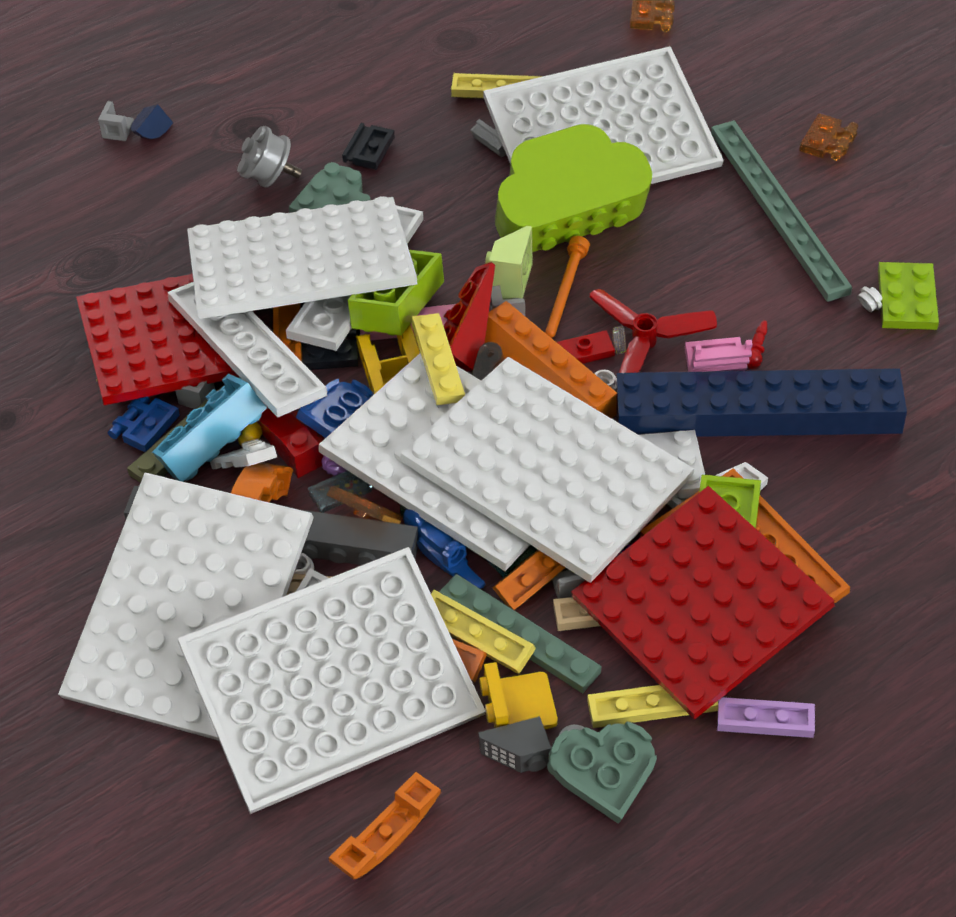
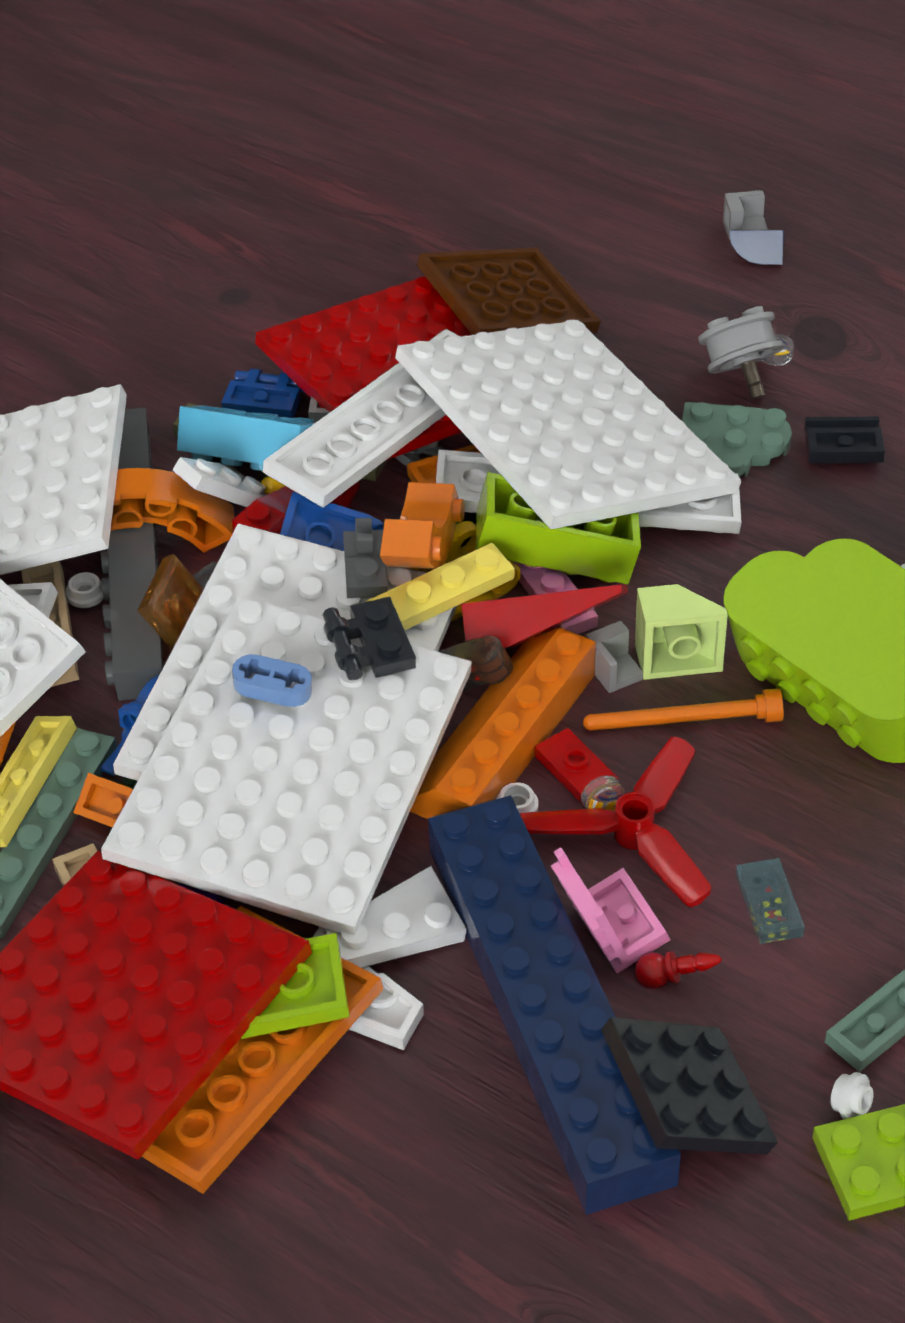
camera: 70 degrees right, 5 degrees down
(129, 259) = (504, 289): none -> reddish brown plate
(380, 351) = (424, 528): none -> orange brick
(395, 384) = (363, 566): none -> dark grey plate
(479, 392) = (381, 635): none -> black plate
(500, 452) = (272, 680): none -> medium blue beam
(721, 294) = (770, 901): none -> clear light blue tile
(852, 354) = (688, 1087): none -> black plate

